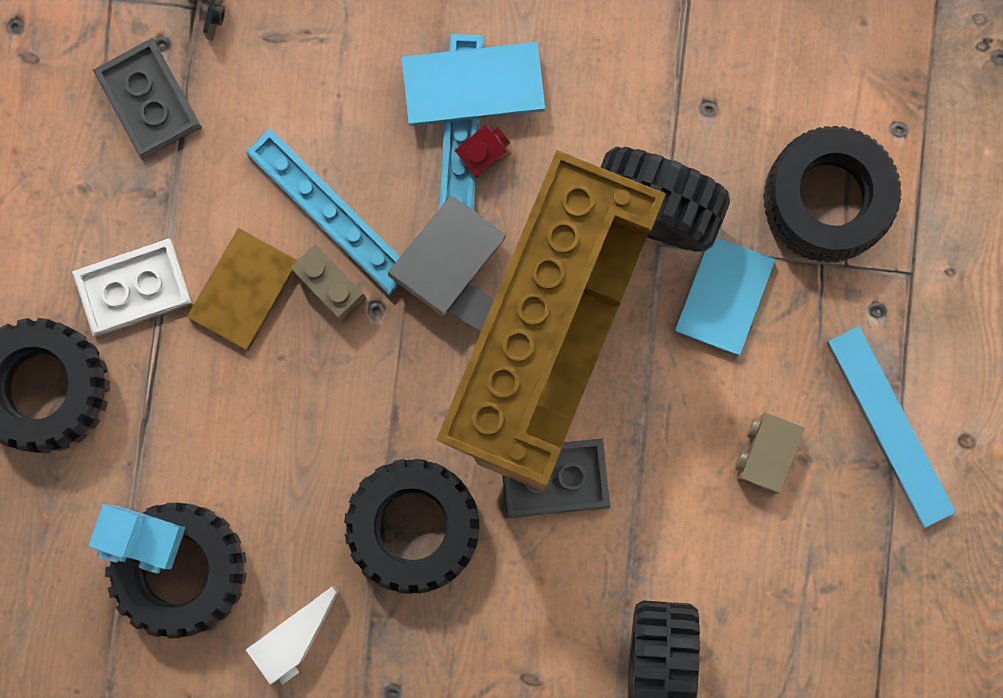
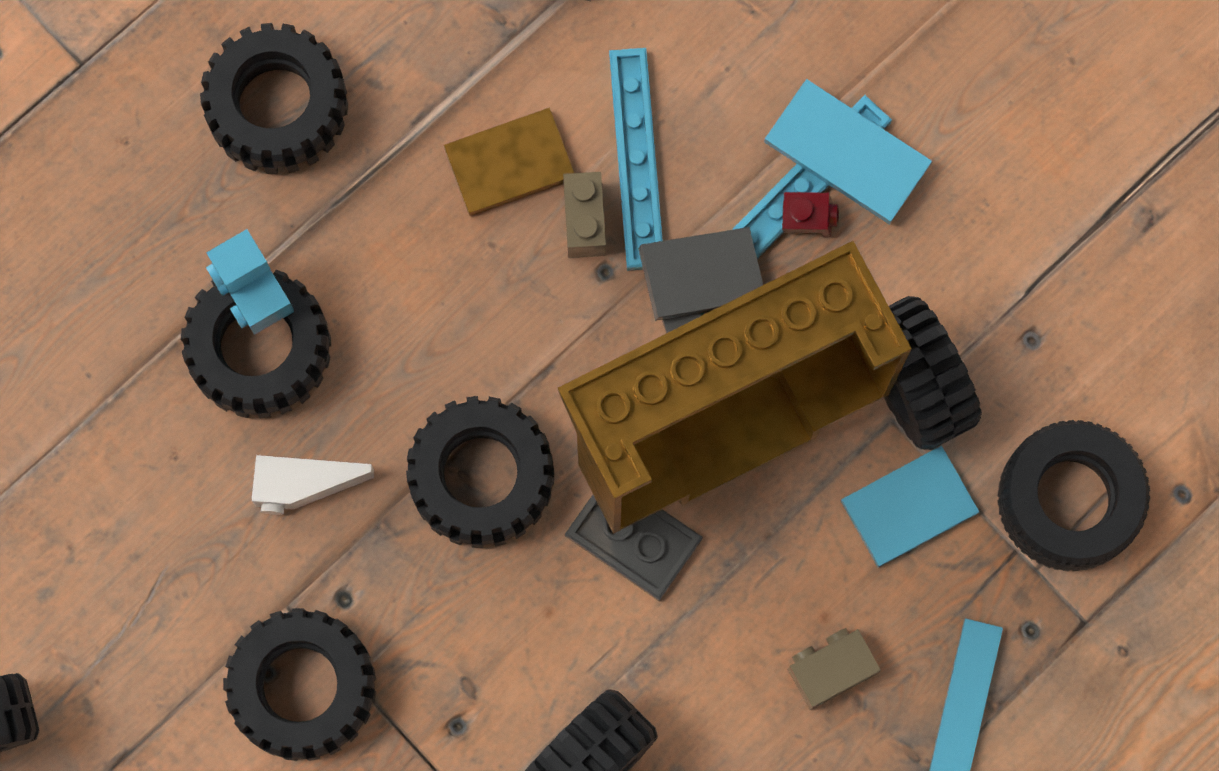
camera: 35 degrees right, 5 degrees down
(132, 287) = (419, 84): white tile -> none

